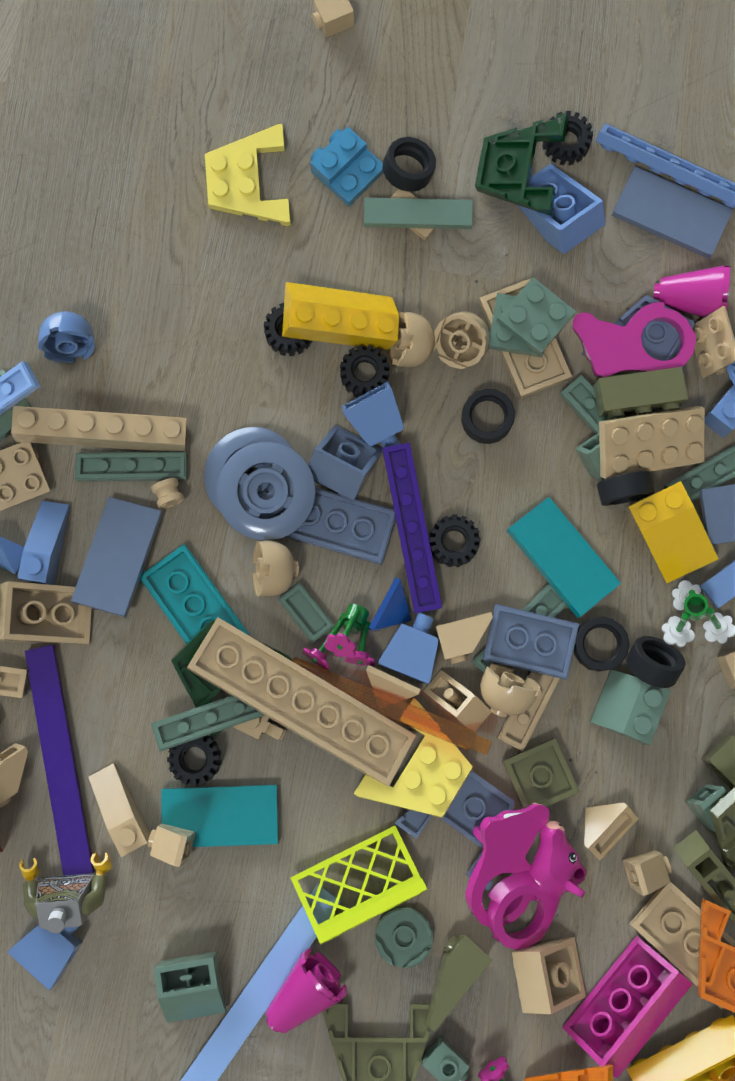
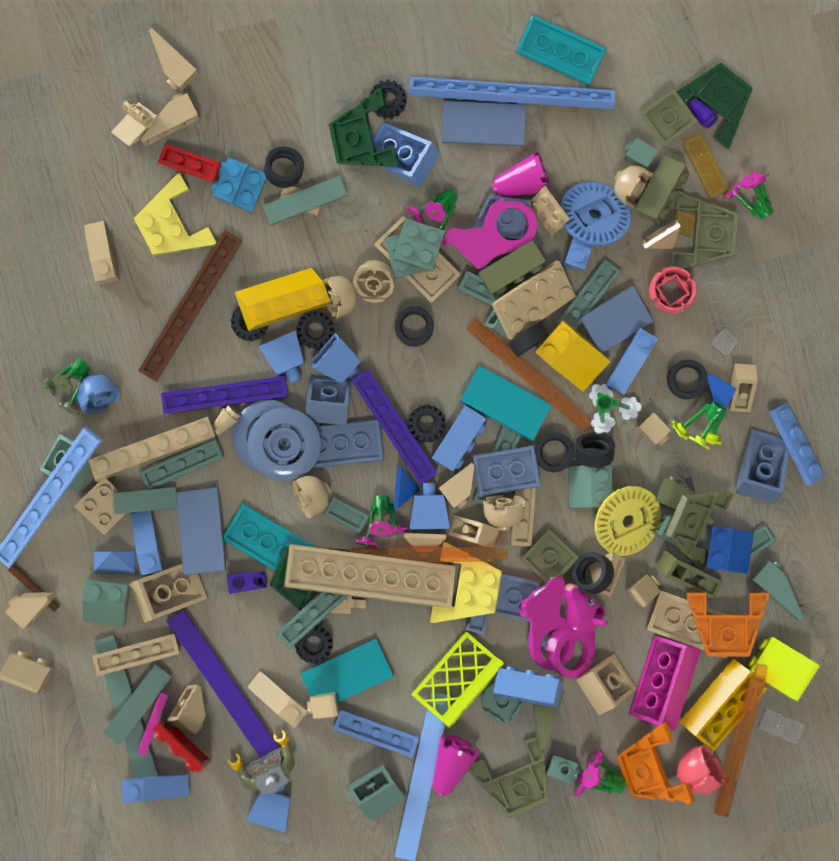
camera: 30 degrees left, 5 degrees up
(55, 301) = (76, 370): none -> plant
(65, 489) = (144, 500): none -> sand green tile
(145, 642) = (246, 581): none -> dark purple leg
(146, 180) = (100, 253): none -> tan slope
(167, 493) = (216, 473): tan wheel -> none
(207, 434) = (226, 419): none -> tan cone
(220, 403) = (224, 394): none -> dark purple plate
(224, 909) = (376, 733): none -> medium blue plate
(225, 282) = (190, 306): none -> reddish brown plate
(263, 41) = (134, 123): none -> tan hinge
(299, 116) = (189, 163): none -> red plate
(300, 59) = (172, 118): none -> tan slope
(314, 386) = (285, 355): none -> medium blue torso
(447, 936) = (528, 687): none -> medium blue brick
(487, 577) = (459, 439): none -> medium blue brick
(575, 284) = (436, 211): none -> plant
(576, 805) = (580, 568): none -> black tyre
(606, 533) = (528, 374): none -> clear orange piece
(645, 754) = (639, 533): none -> light yellow piece

